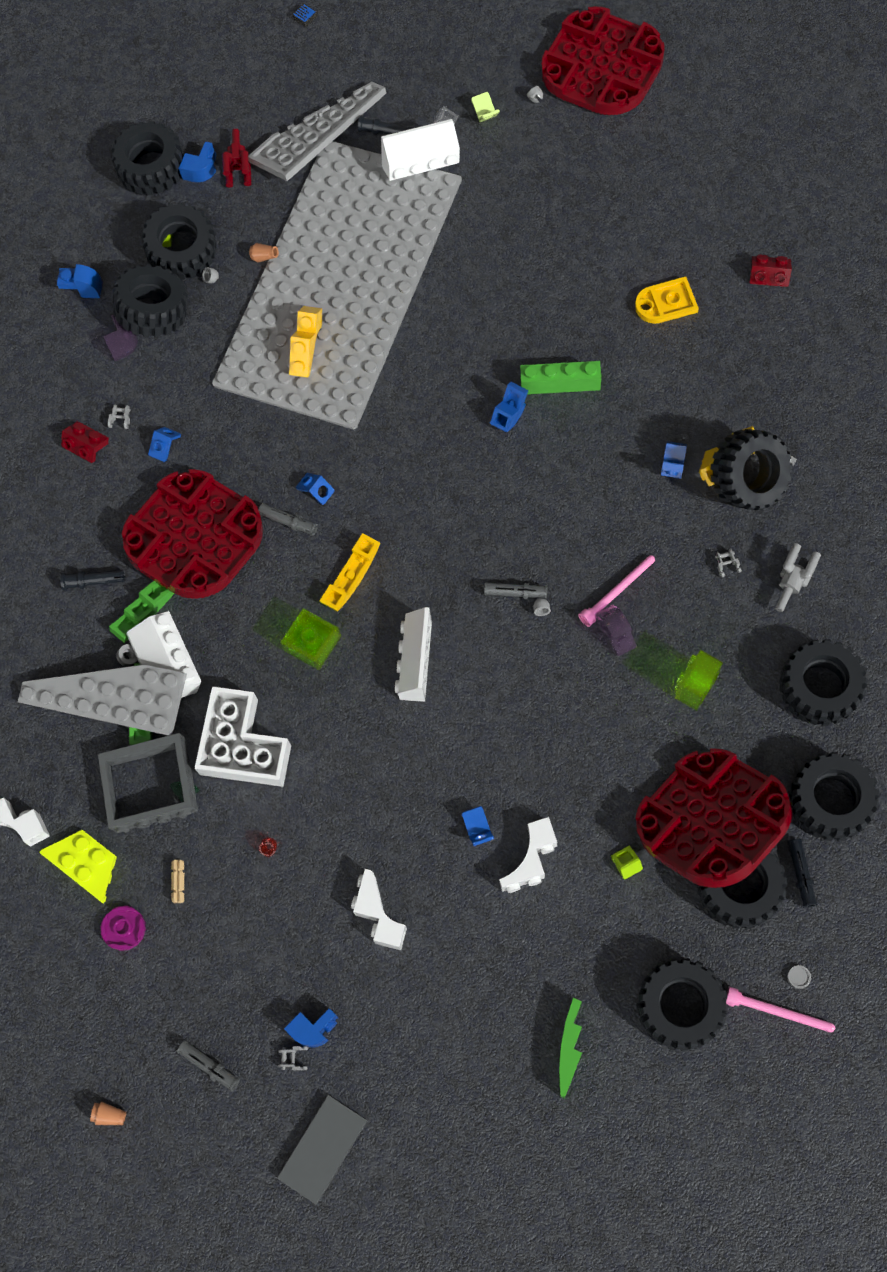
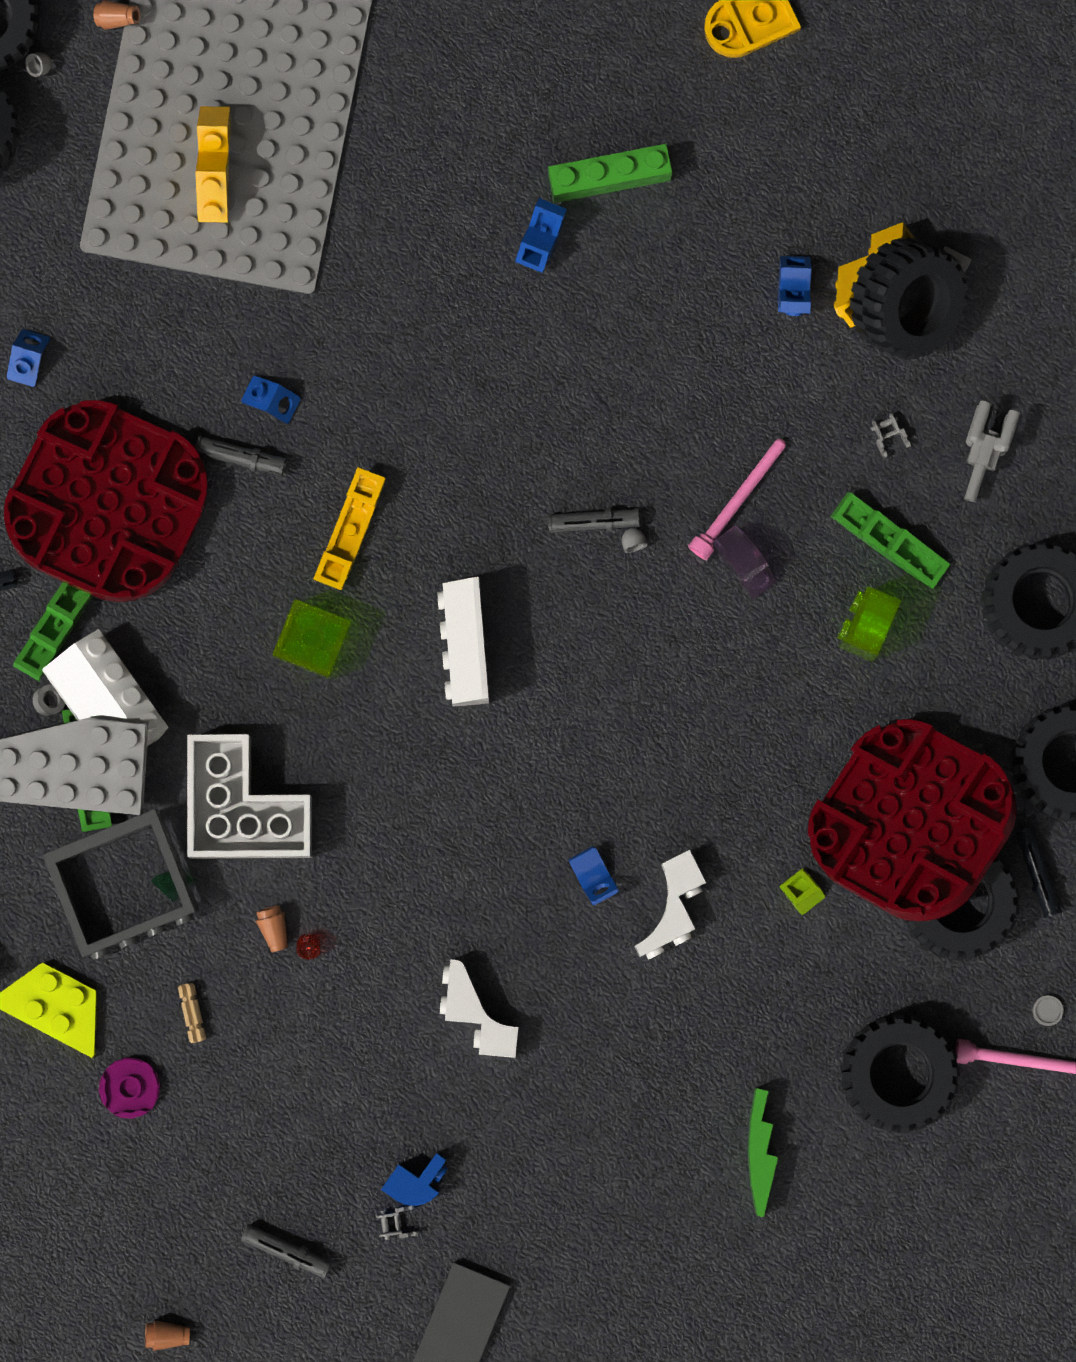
camera: 20 degrees left, 15 degrees up
(246, 829) = (273, 927): none -> nougat cone
(719, 630) = (890, 540): none -> bright green slope

